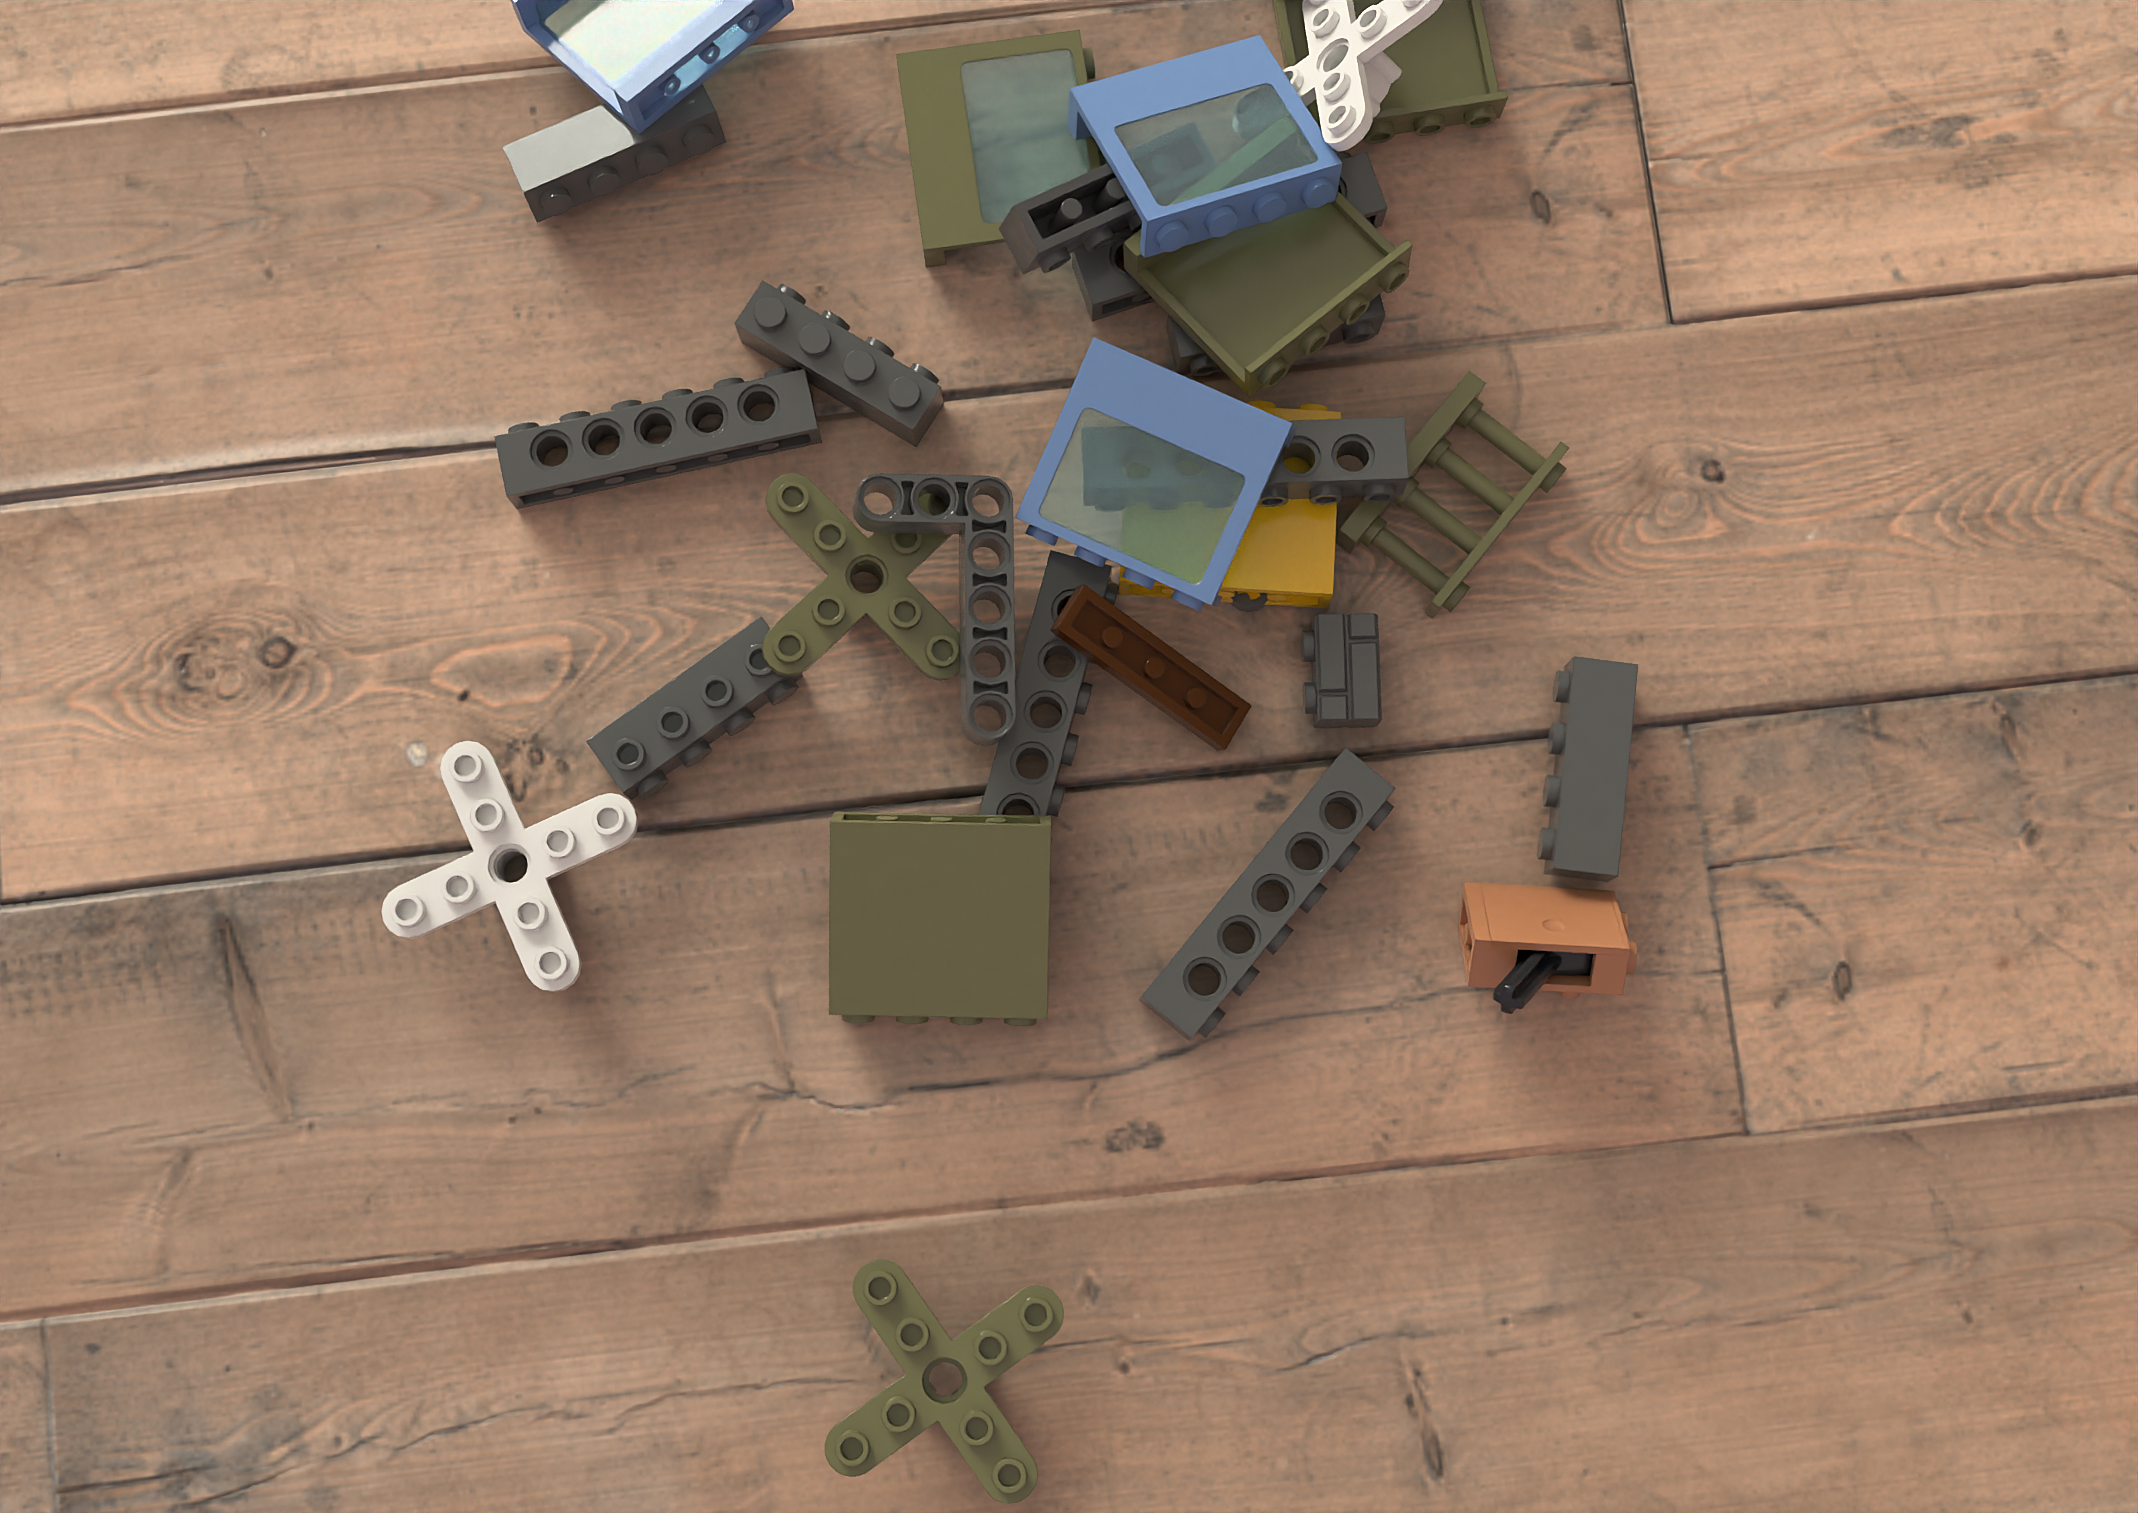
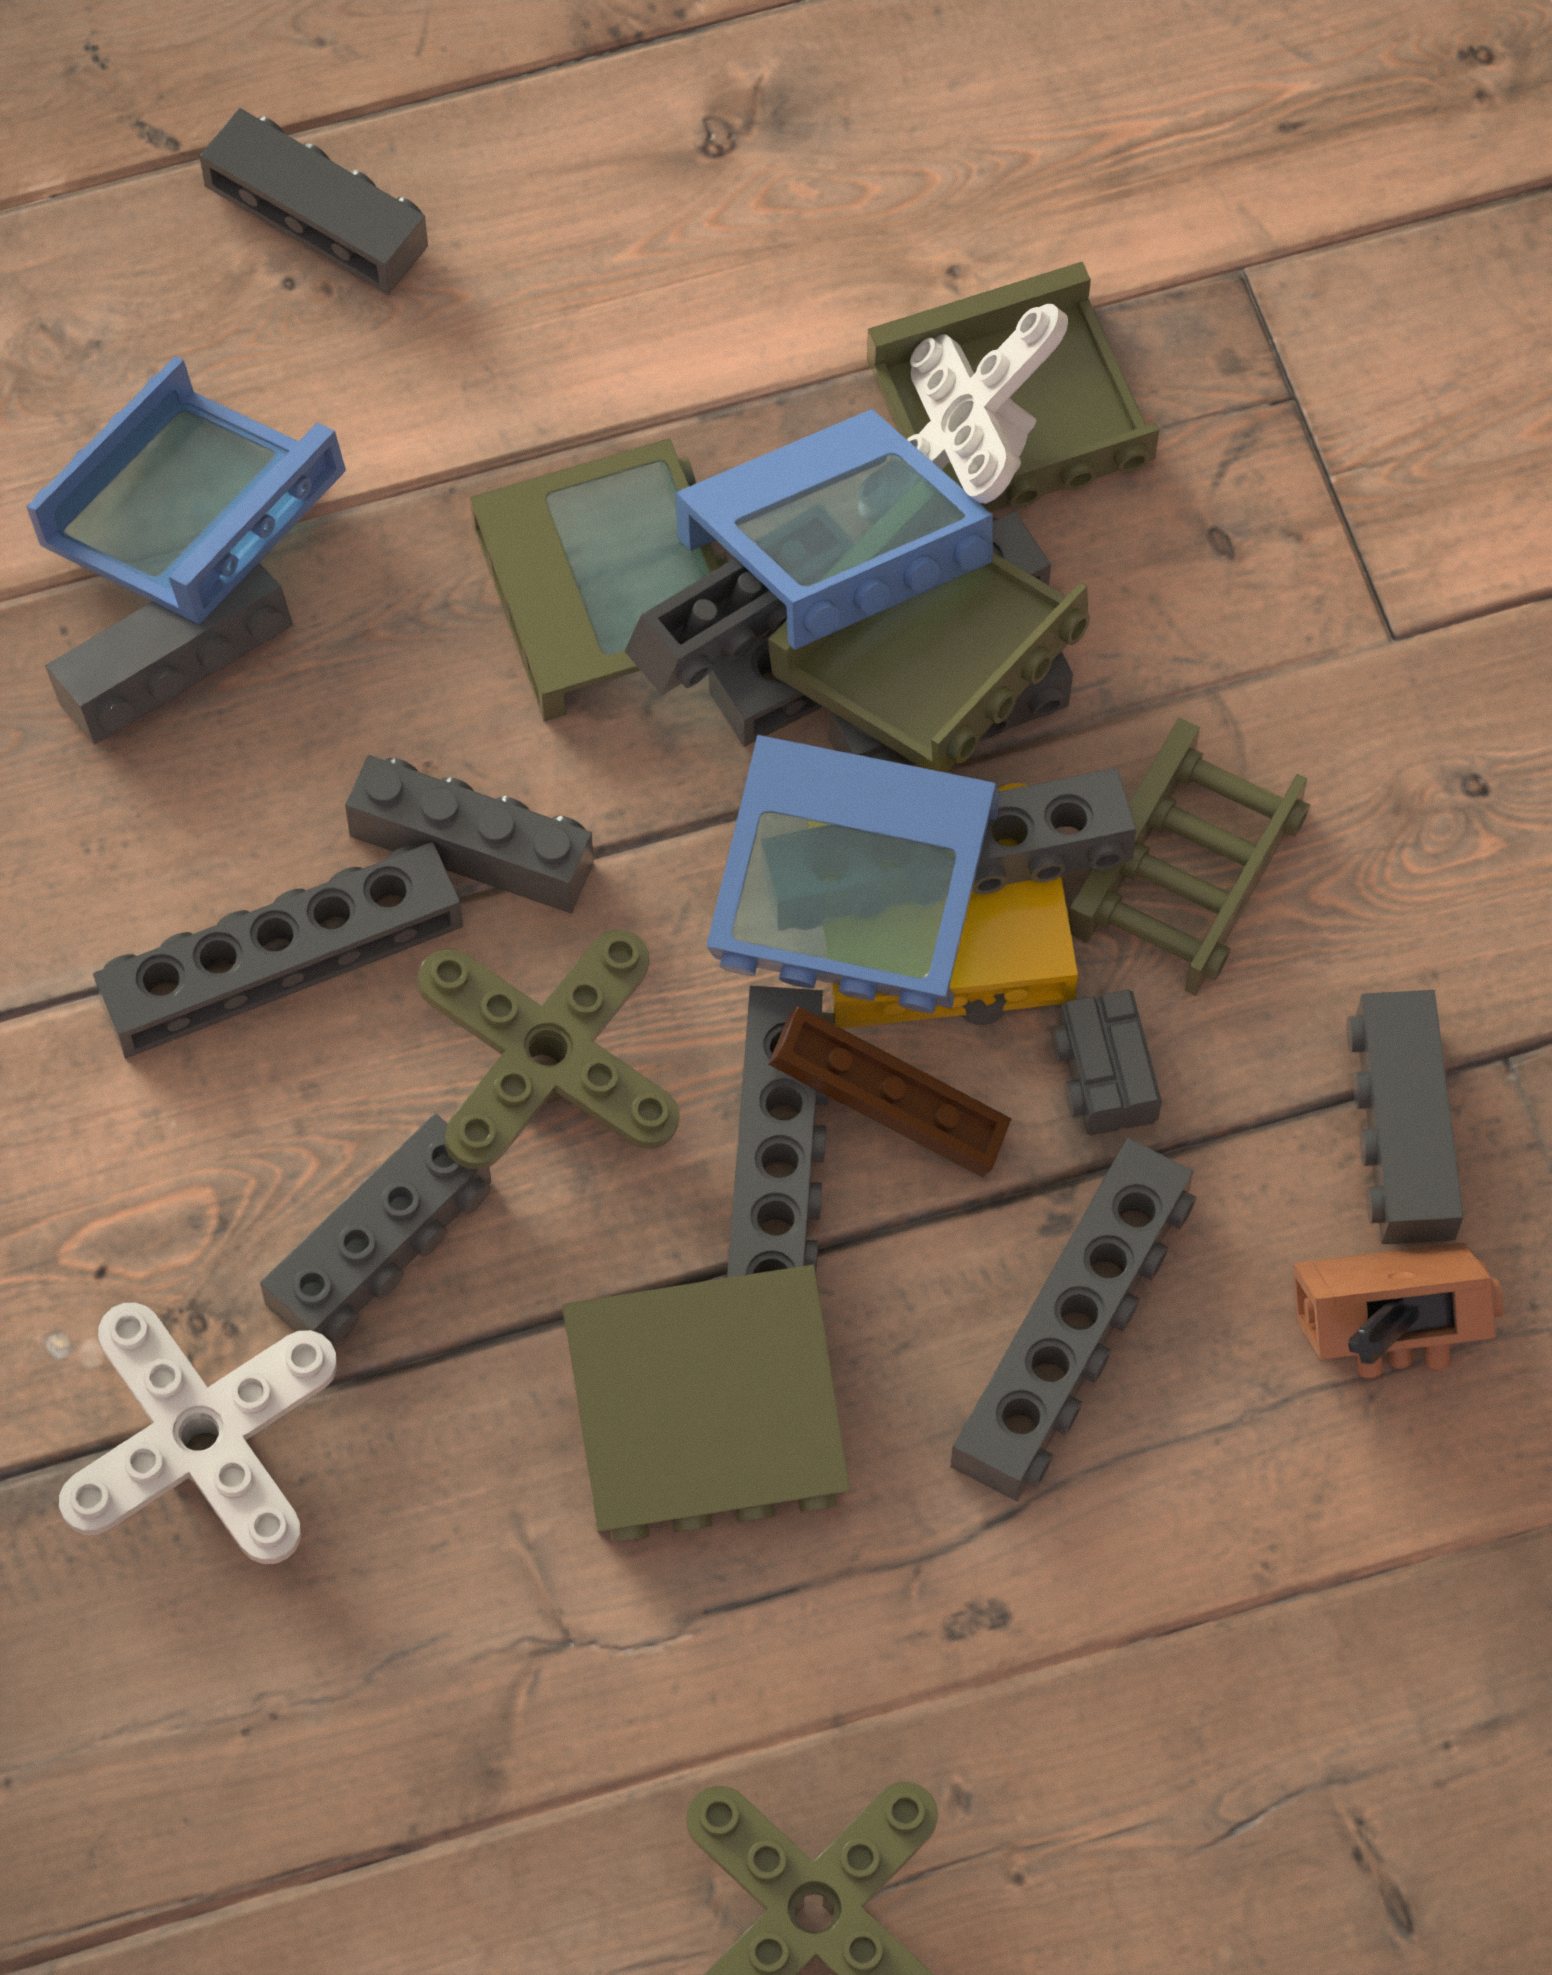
camera: 10 degrees left, 15 degrees down
(974, 582) = (673, 1025): dark grey beam -> none

